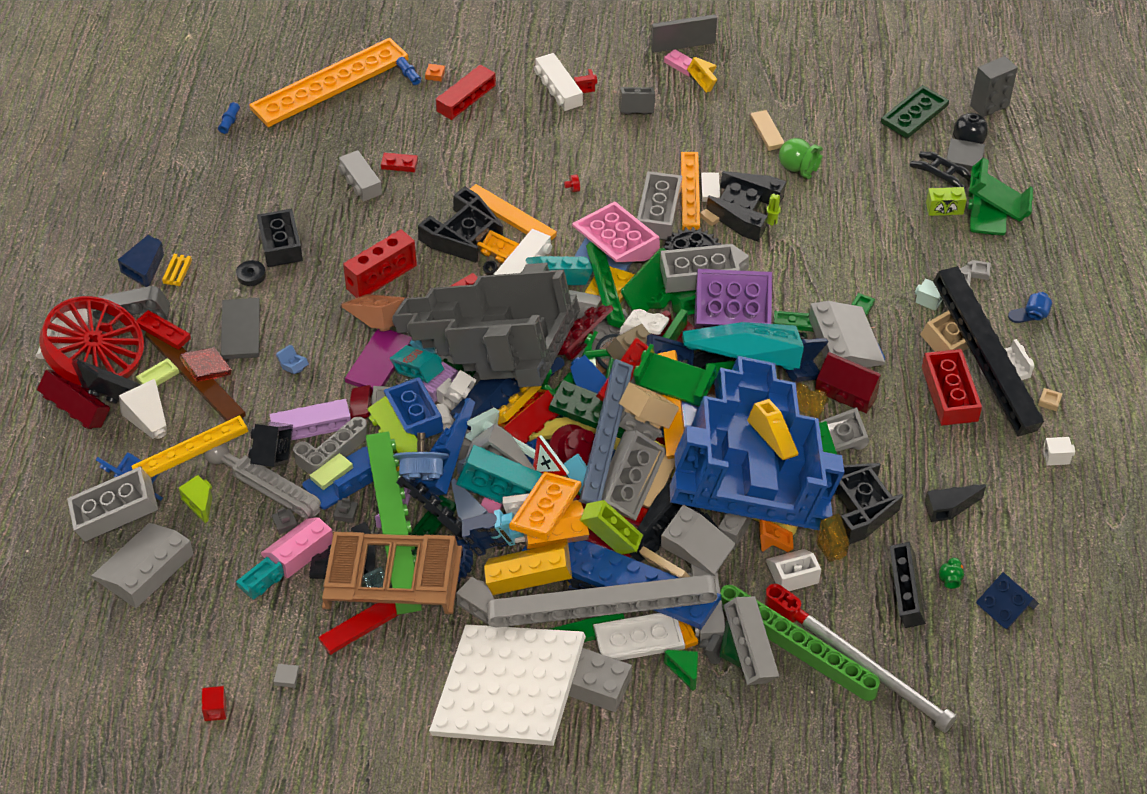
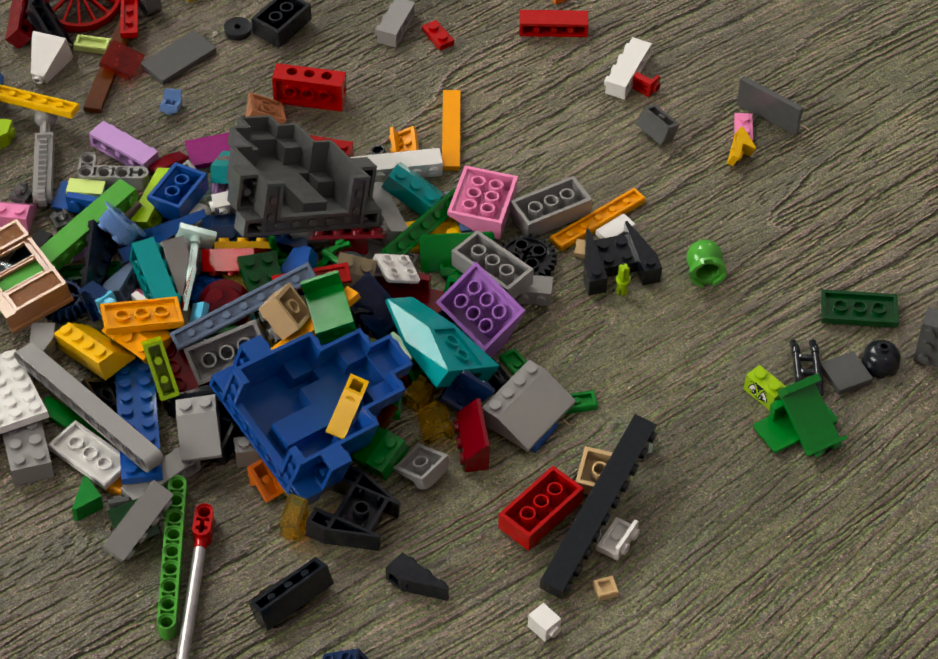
camera: 50 degrees right, 0 degrees up
(270, 444) = (66, 135): black brick -> none
(464, 229) = (402, 109): black wedge -> none
(574, 183) = (522, 144): red tile -> none
(662, 563) = (167, 431): tan tile -> none
(677, 326) = (424, 294): green tile -> none
(767, 130) = (725, 225): tan tile -> none
(795, 569) = (241, 512): white slope -> none
(951, 573) = (335, 621): green animal -> none
(976, 269) = (691, 450): light grey tile -> none
(1019, 315) = (690, 517): dark blue piece -> none
(1038, 305) = (705, 520): blue head -> none

